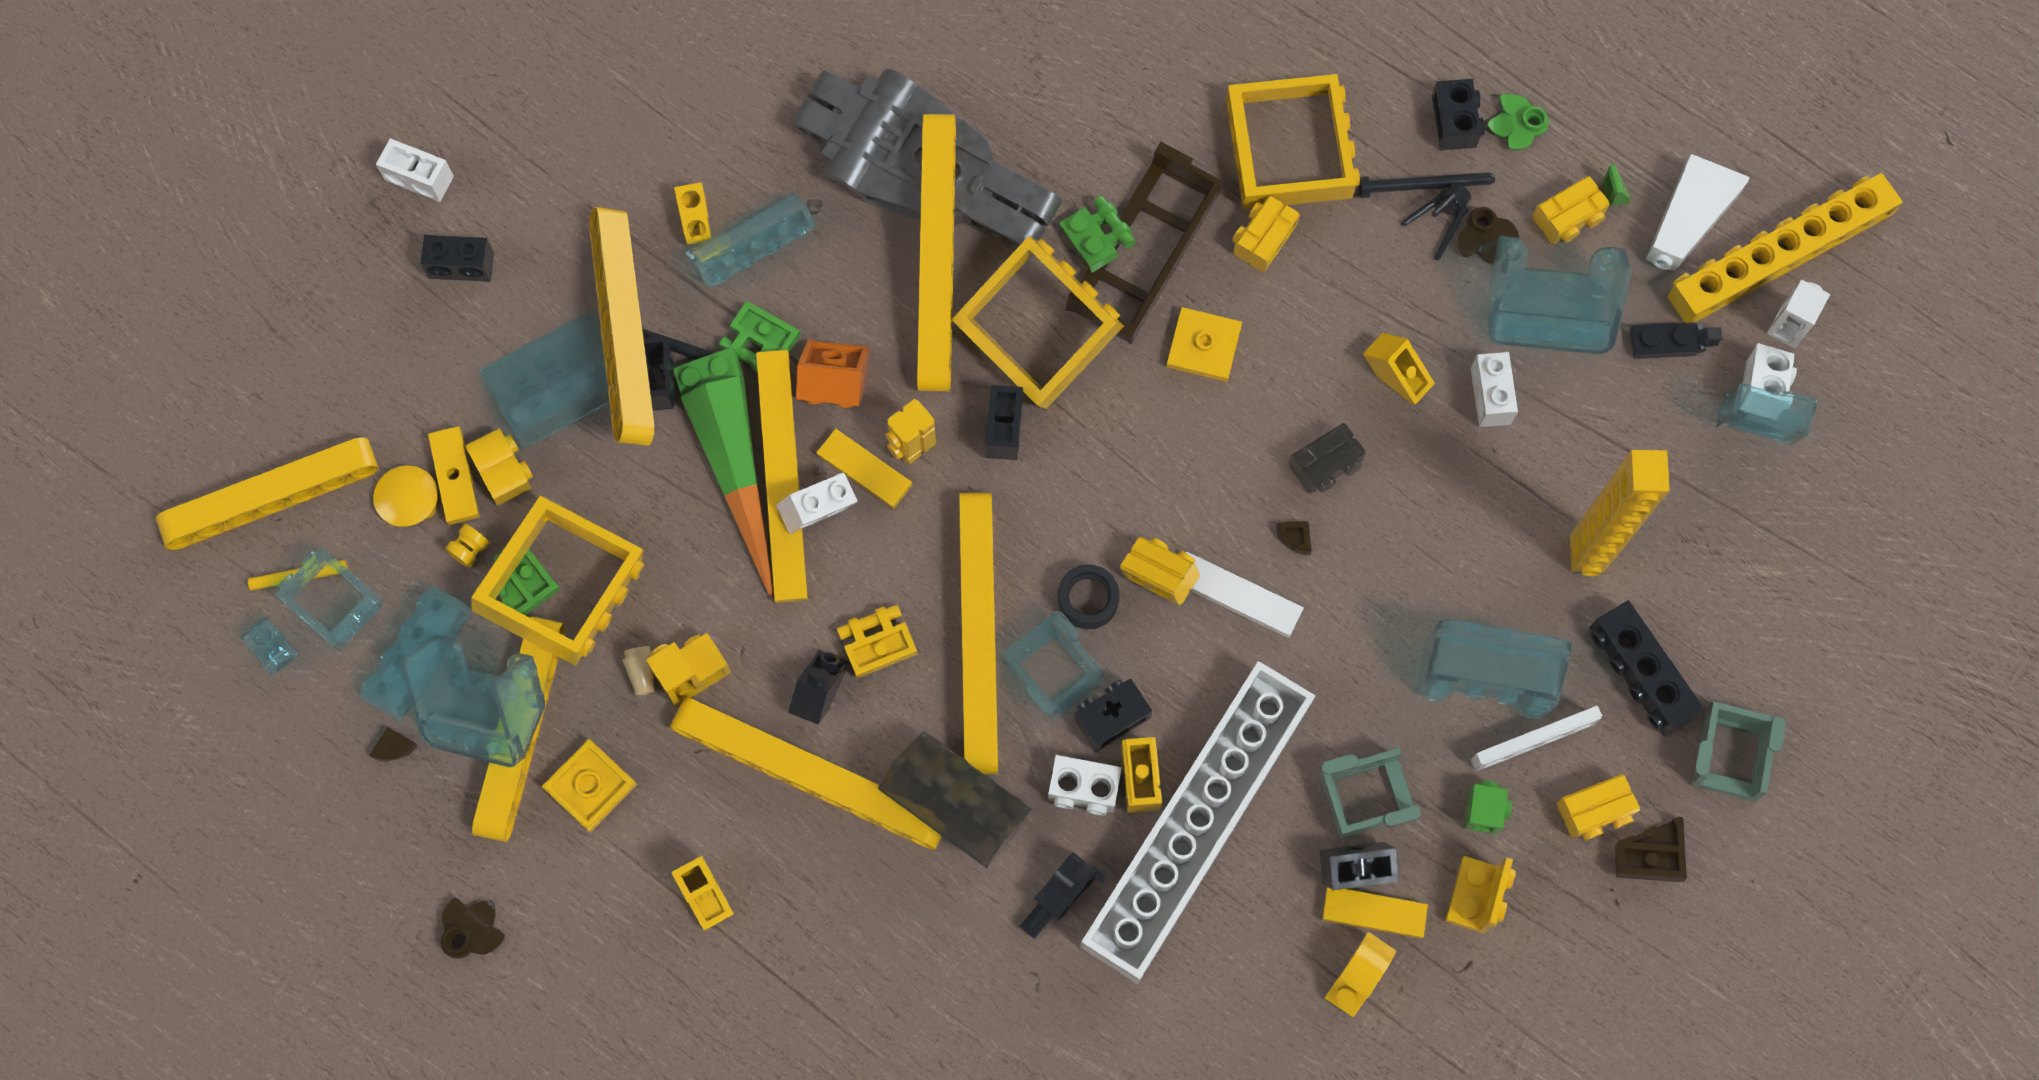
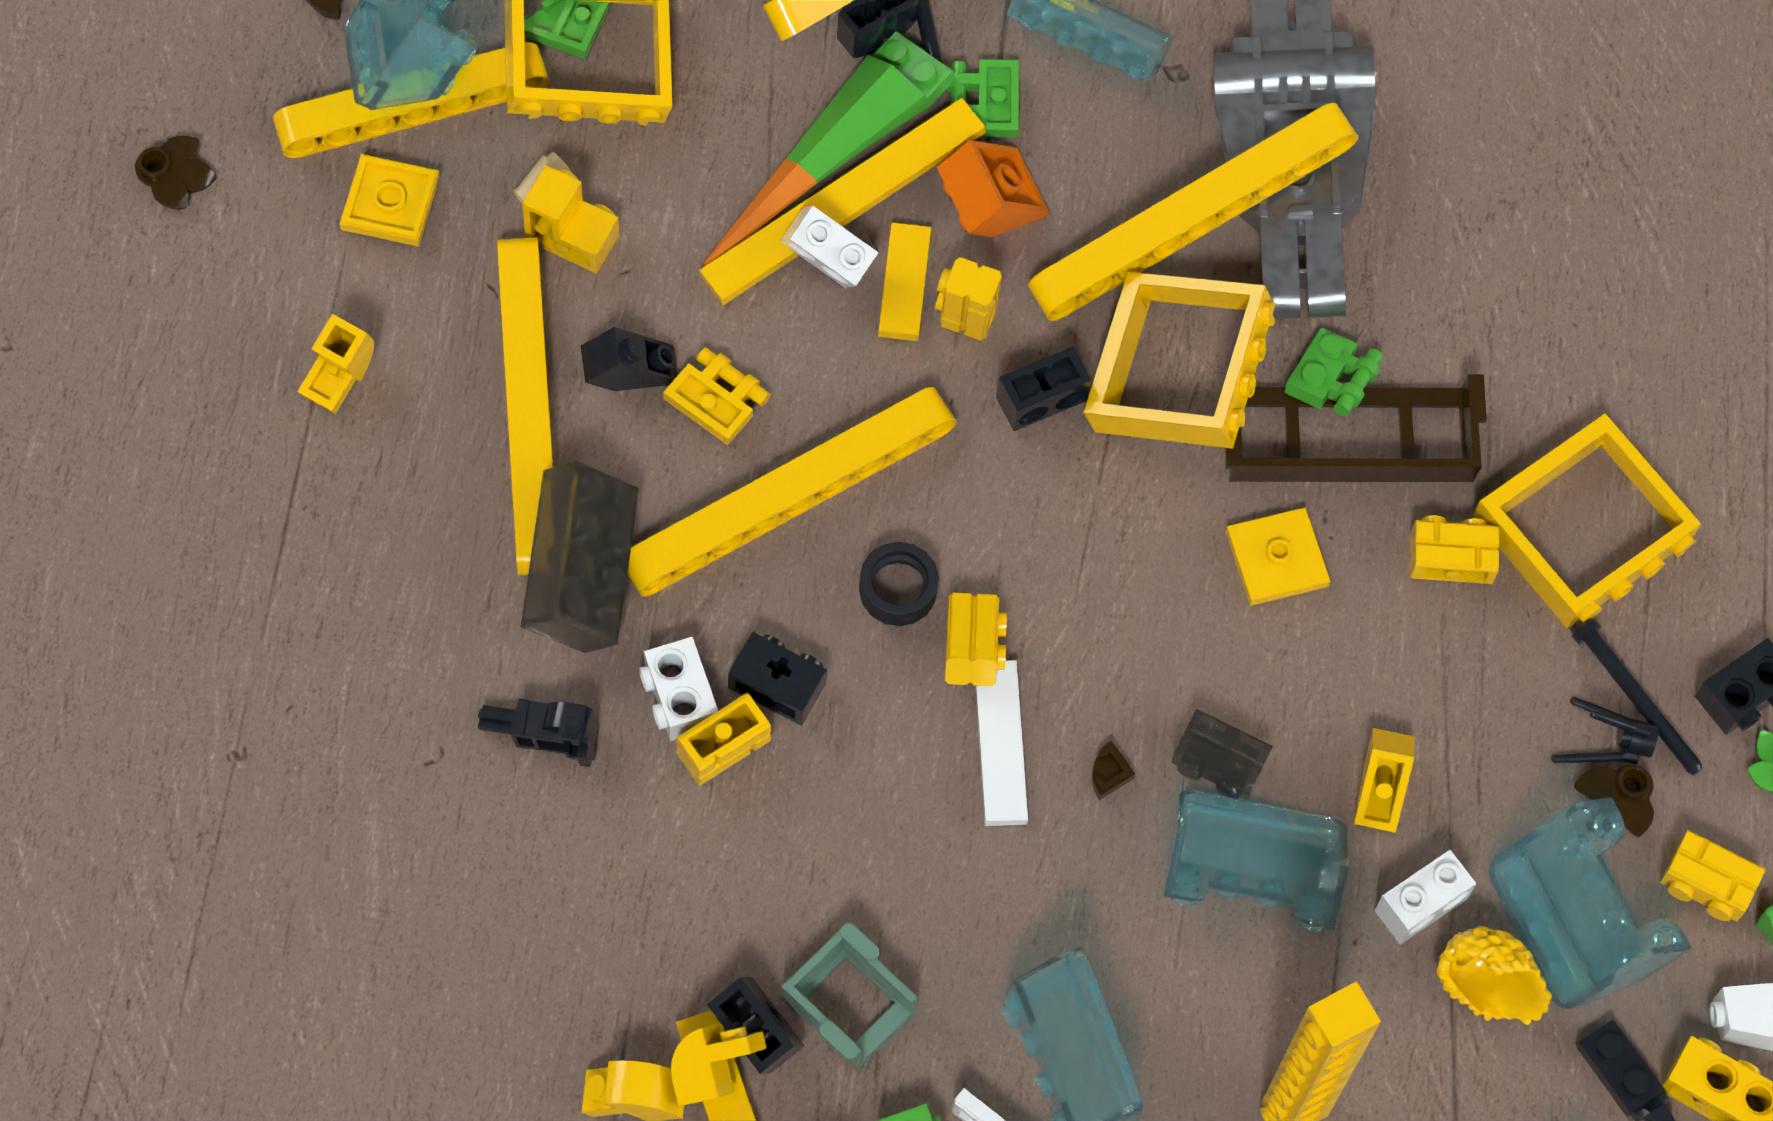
camera: 55 degrees right, 5 degrees down
(1060, 627) = (805, 551): clear light blue piece -> none
(1197, 822) = (706, 826): white brick -> none
(1372, 913) = (701, 1062): none -> yellow brick
(1411, 473) = (1258, 854): none -> clear light blue windscreen
(1571, 378) = (1493, 975): none -> yellow piece

